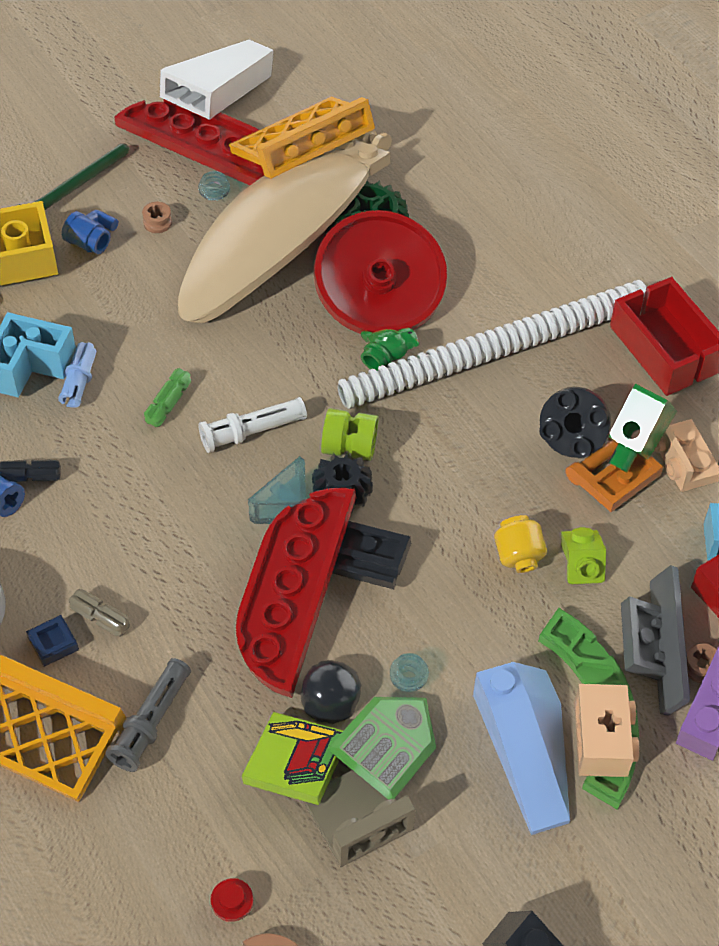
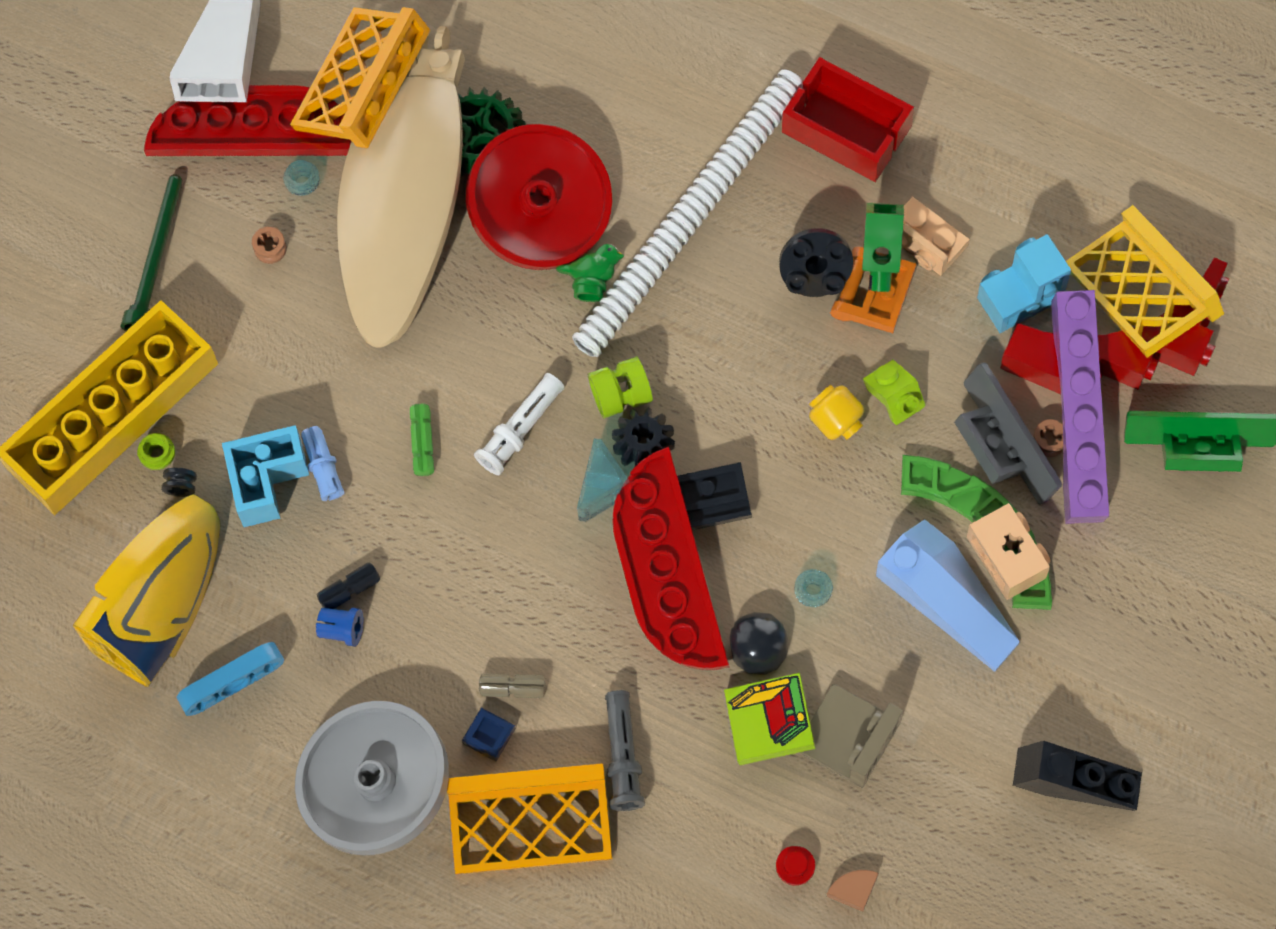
camera: 25 degrees left, 15 degrees up
(89, 230) = (216, 304): blue piece -> none
(387, 742) = (836, 661): bright green tile -> none

